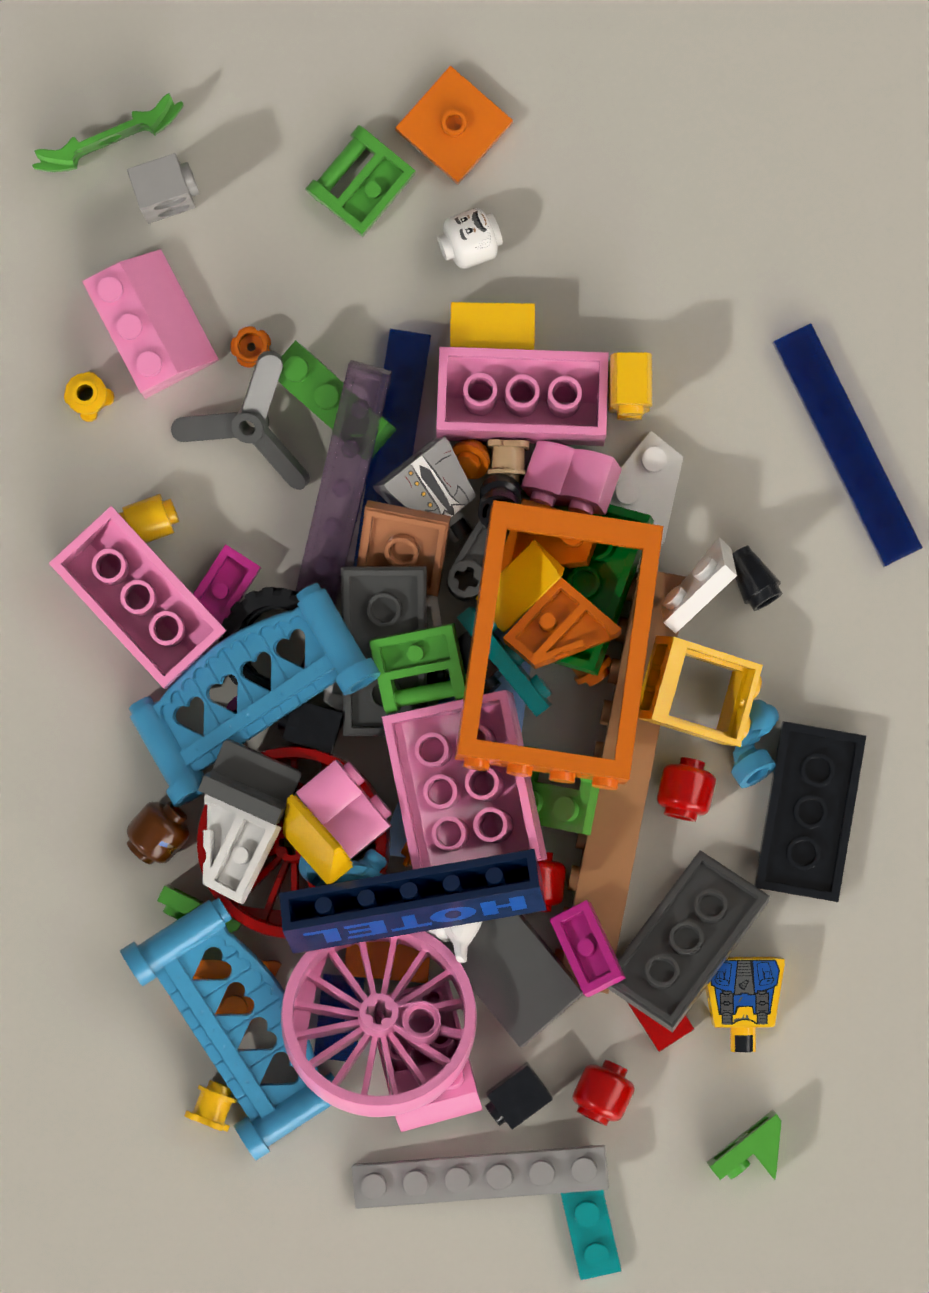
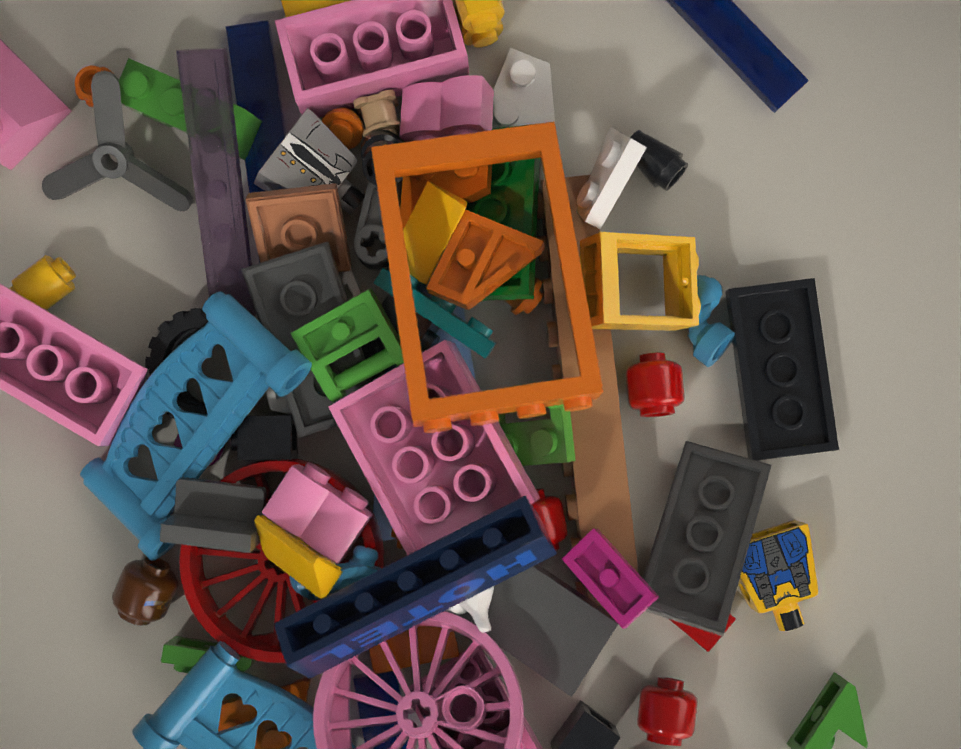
camera: 25 degrees left, 0 degrees up
(226, 582) = (138, 322): dark pink plate -> none
(234, 849) = (221, 590): white wing -> none

